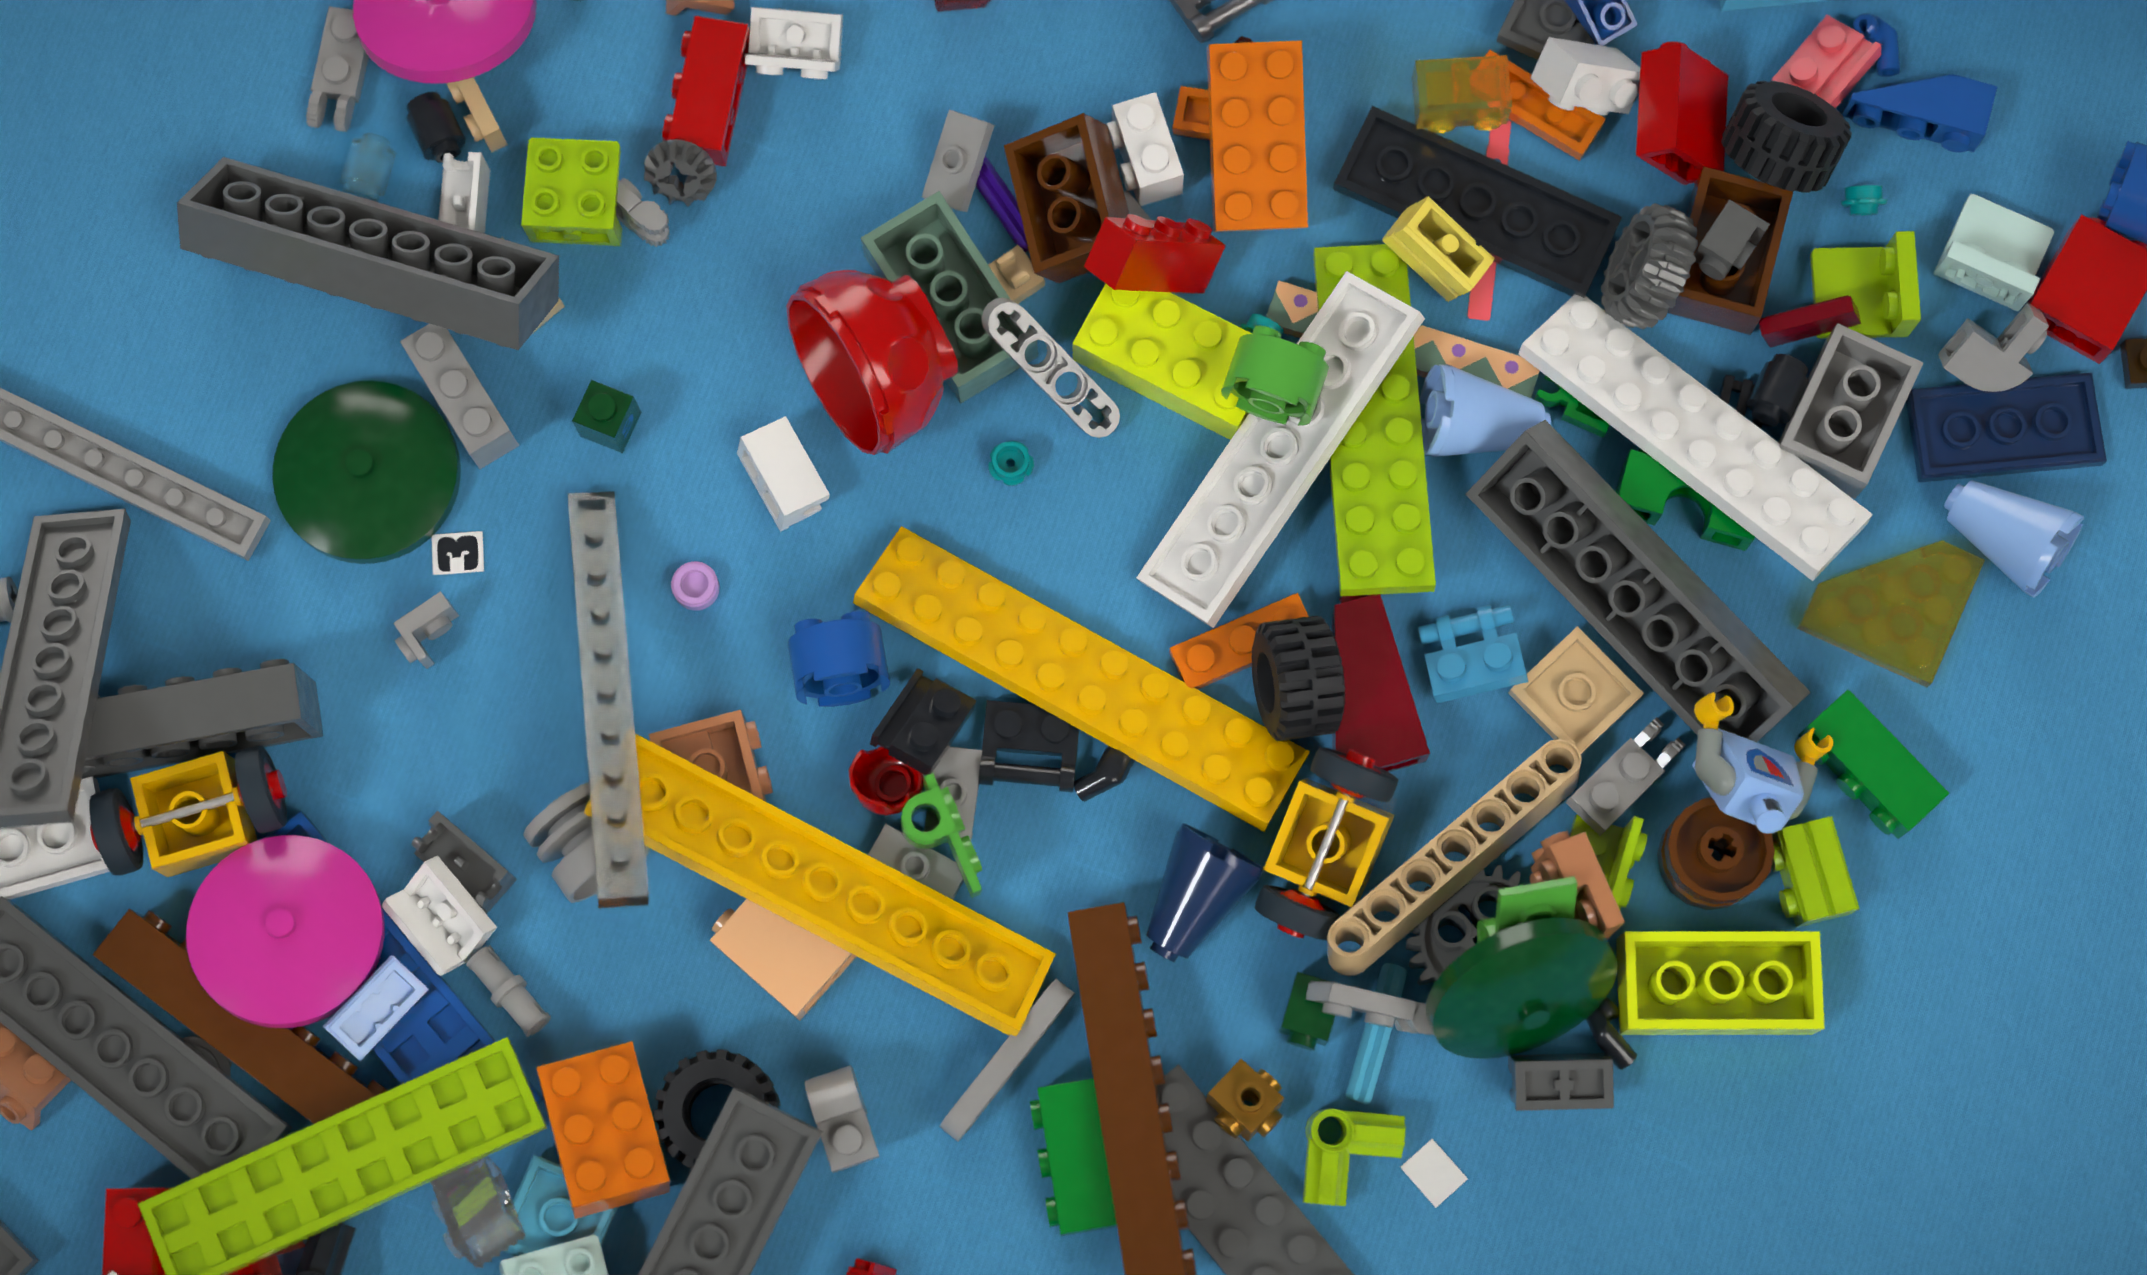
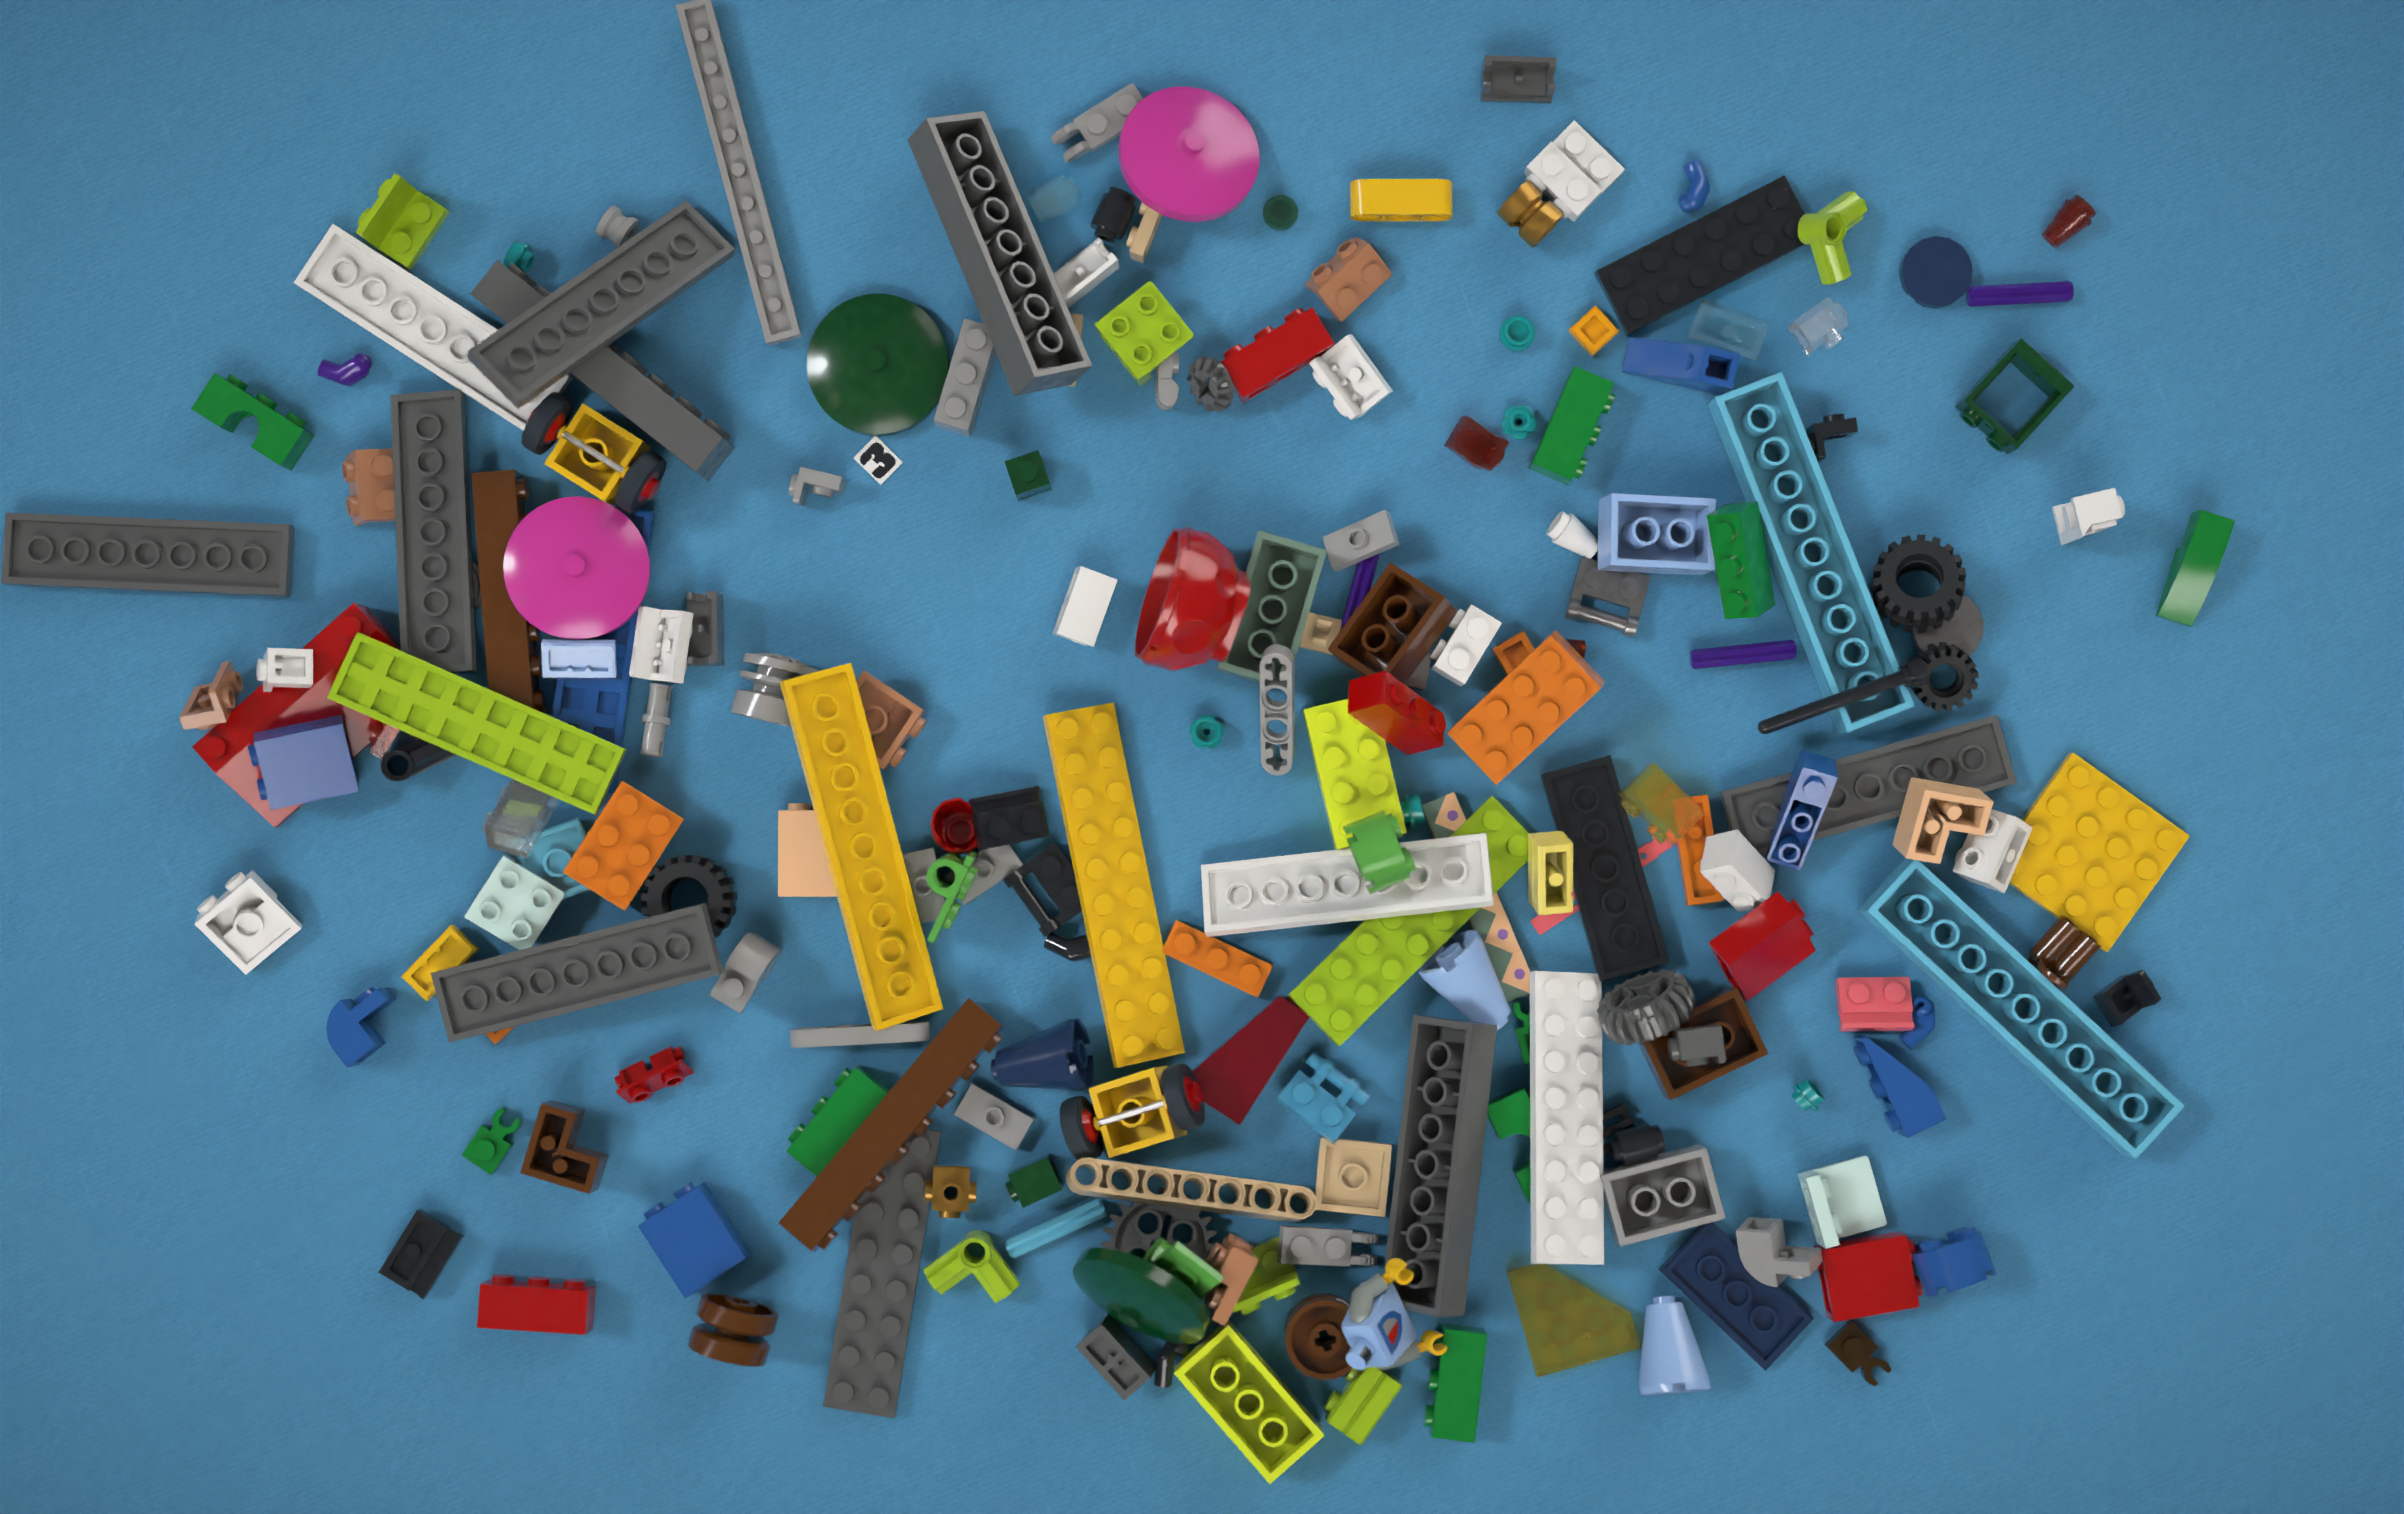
camera: 50 degrees right, 10 degrees up
(607, 702) = (856, 634): clear smoke plate -> none
(695, 586) = (976, 614): lavender tile -> none
(838, 659) = (1000, 739): blue brick -> none
(1209, 998) = (994, 1116): none -> light grey plate
(1298, 678) = (1215, 1013): black tyre -> none
(1379, 1007) = (1064, 1218): light grey hinge -> none
(1434, 1173) = (1006, 1326): white sticker -> none
(1786, 136) = (1800, 1020): black tyre -> none
(1809, 321) = (1698, 1127): dark red tile -> none
(1877, 279) = (1749, 1142): lime bracket -> none

